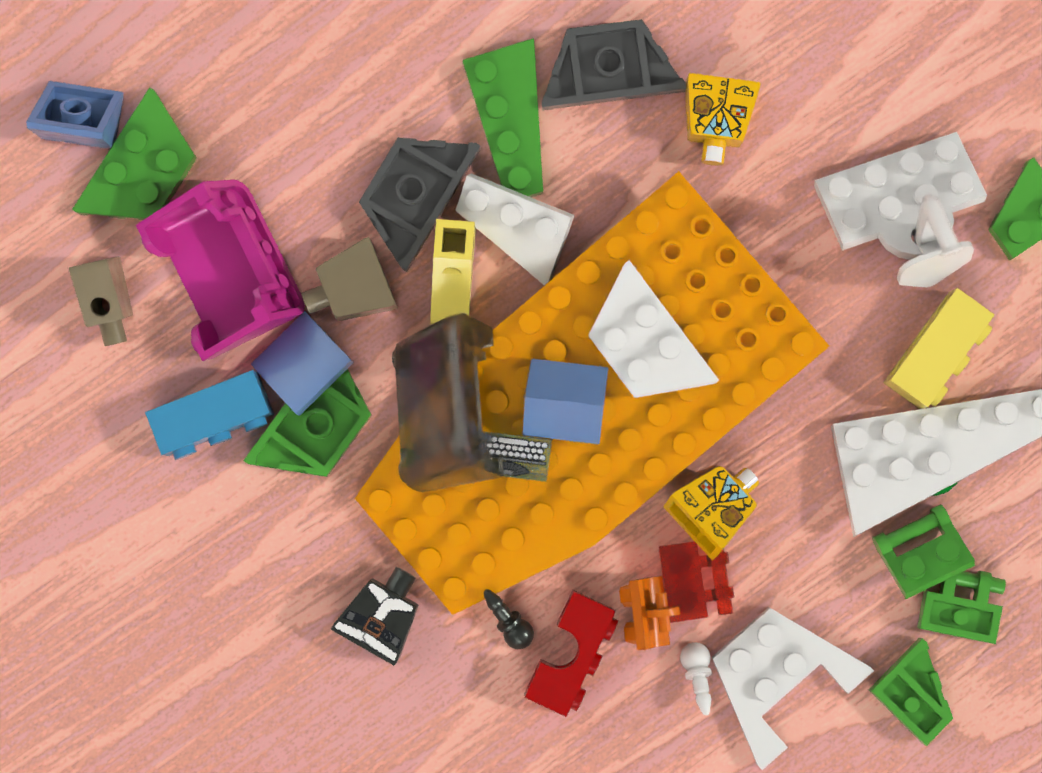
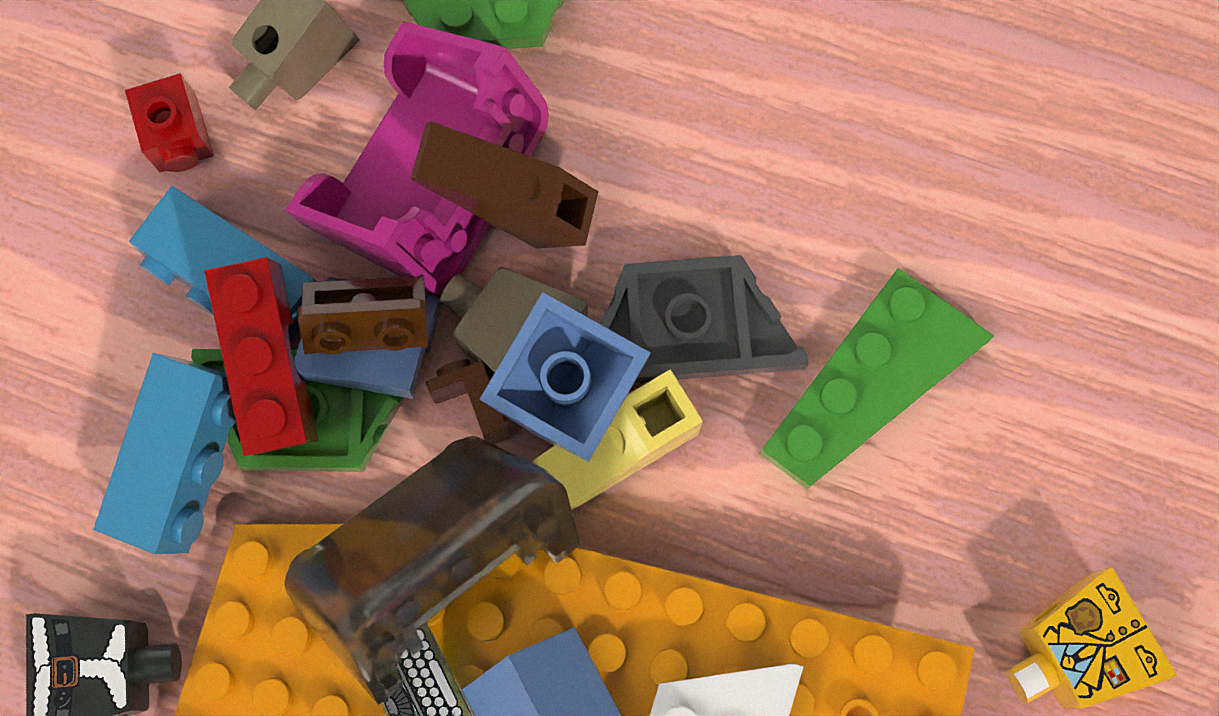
camera: 55 degrees right, 10 degrees down
(102, 392) = (169, 124): none -> red brick
(278, 234) = (506, 188): none -> reddish brown slope
(282, 423) = (254, 342): none -> red arch
(294, 355) = (363, 315): none -> reddish brown bracket
(297, 505) = (168, 457): none -> dark azure brick
(384, 325) = (462, 378): none -> reddish brown bracket
(403, 275) = (565, 377): none -> medium blue slope
(517, 224) = (742, 485): white wing -> none
(609, 65) = (1036, 458): dark grey wing -> none

